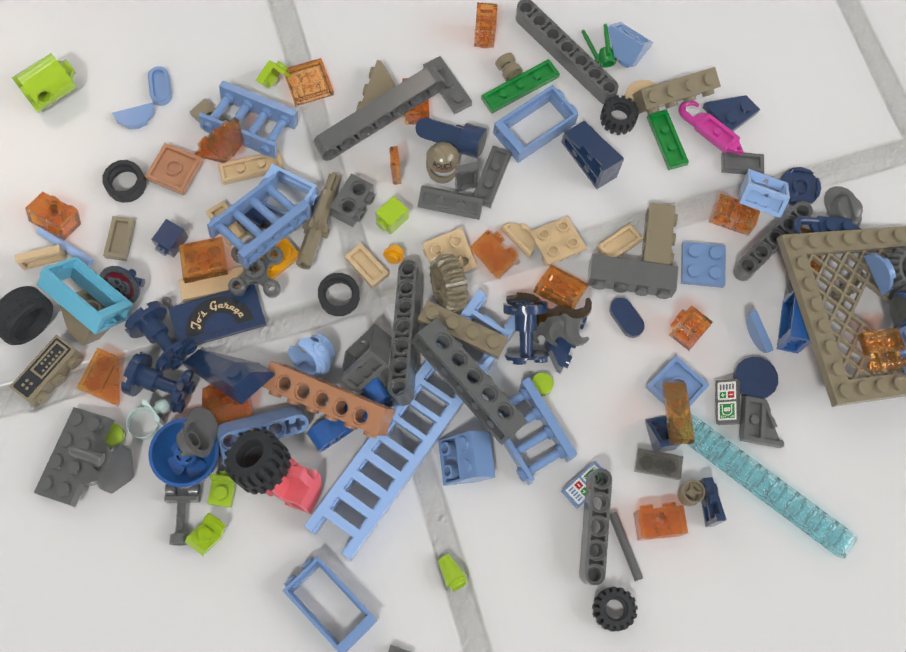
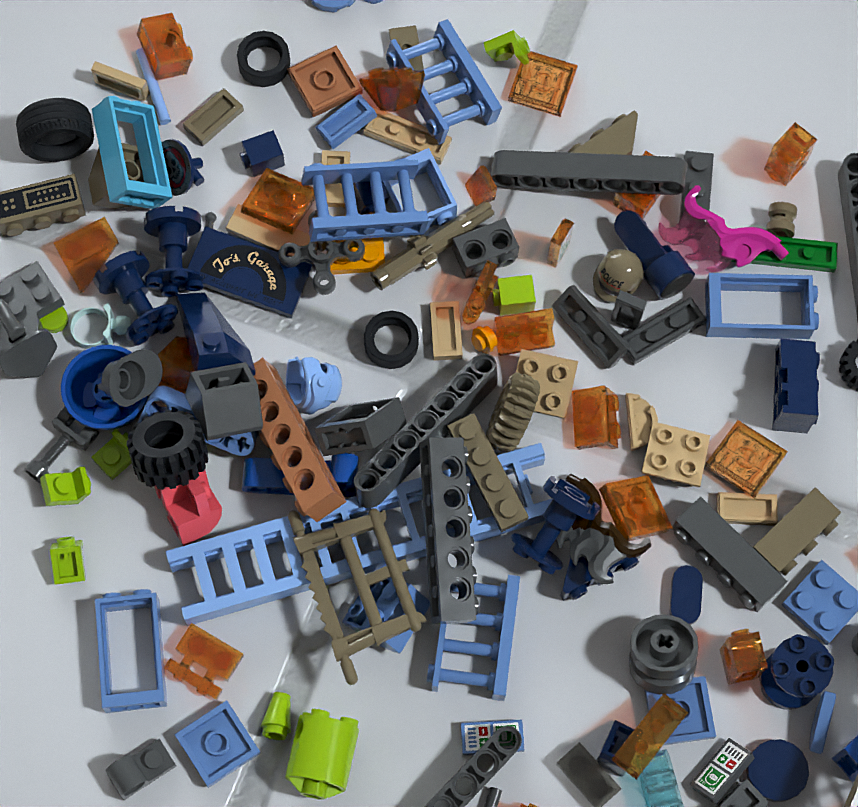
camera: 40 degrees right, 0 degrees up
(207, 184) = (346, 121): none -> medium blue tile
(243, 579) = (67, 560): none -> lime bracket
(270, 403) = (225, 400): none -> dark grey slope
(320, 166) = (481, 186): none -> clear orange slope
(371, 232) = (480, 293): none -> clear orange plate
(379, 567) = (209, 653): none -> clear orange plate
(415, 232) = (524, 331): none -> clear orange bracket
(428, 619) = (217, 743): none -> medium blue plate
(477, 473) = (379, 631): none -> dark tan piece
(480, 103) = (715, 241): none -> piece
(499, 574) = (322, 754): none -> lime cylinder
(543, 383) = (532, 596): lime tile -> none
(597, 215) = (746, 459): none -> clear orange tile
(645, 359) = (663, 654): none -> dark grey wheel
(730, 311) = (796, 672): none -> dark blue piece

